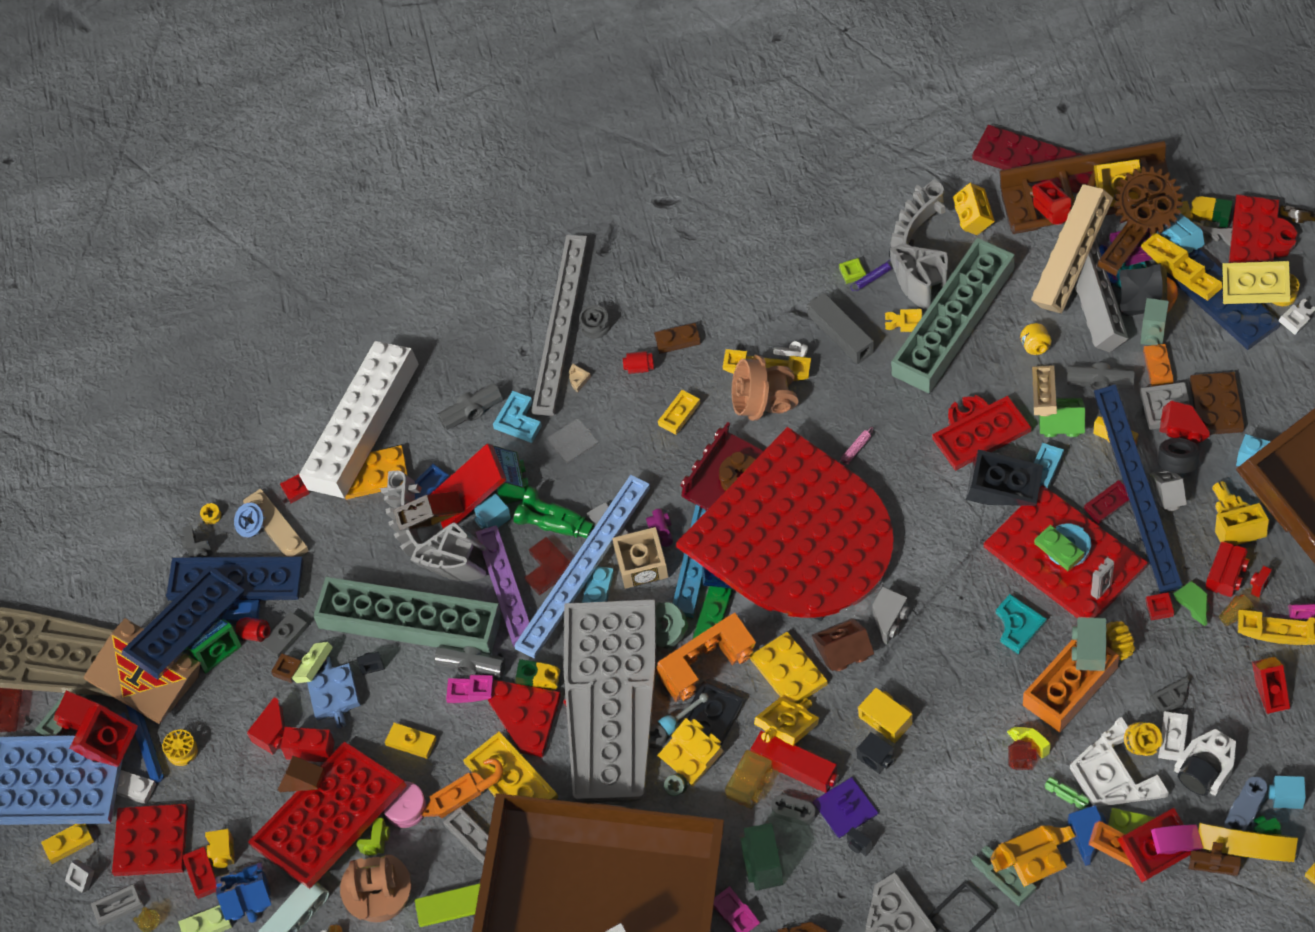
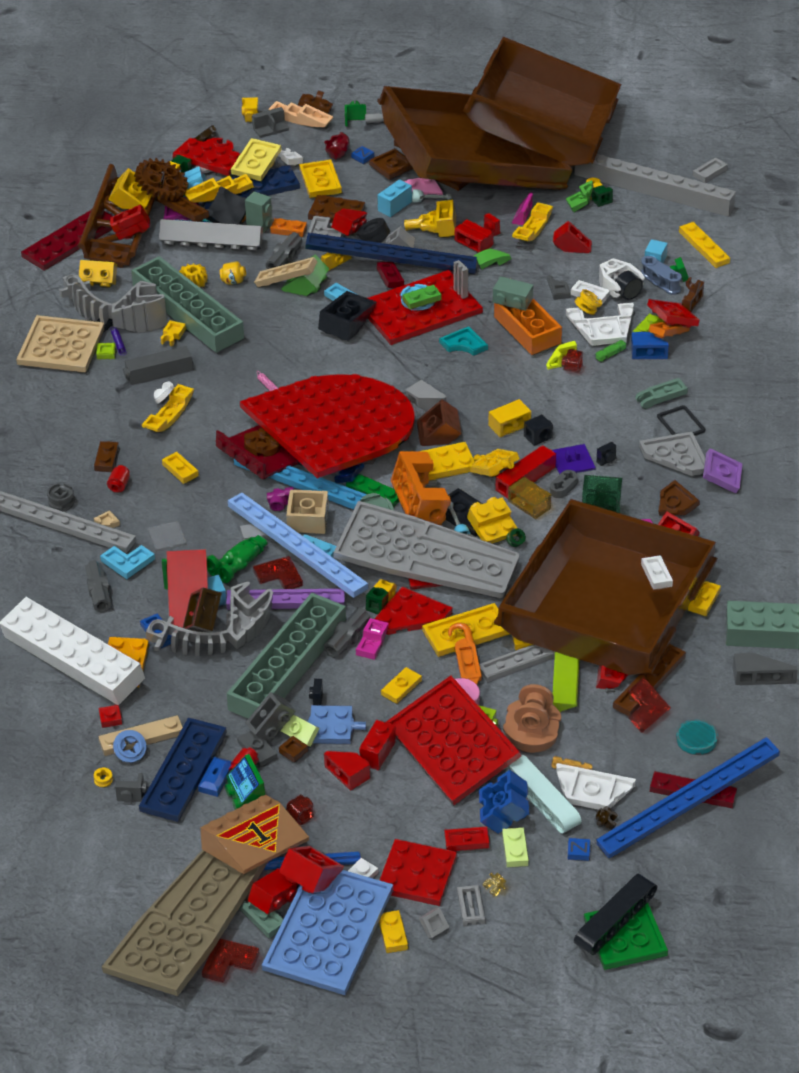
camera: 80 degrees left, 15 degrees down
(179, 748) = (336, 835): yellow wheel -> none
(183, 622) = (226, 789): dark blue plate -> none
(203, 703) = (300, 809): none -> clear red plate
(220, 848) = (449, 818): yellow brick -> none
(301, 776) = (406, 754): reddish brown slope -> none
(309, 630) = (270, 717): none -> dark grey brick
(761, 388) = (196, 402): nougat piece -> none
(843, 224) = (60, 343): none -> tan plate
(980, 428) = (292, 319): red plate -> none
(1013, 302) = (195, 273): none -> yellow gear
(1033, 853) = (654, 371): light orange plate -> none
(1072, 248) = (173, 222): tan brick -> none
(1159, 606) = (486, 273): red plate -> none
(1176, 838) = (675, 300): dark pink slope -> none
(1230, 613) = (507, 241): clear yellow cone -> none
(1249, 843) = (678, 288): yellow slope -> none
(1269, 363) = (320, 178): none -> yellow plate

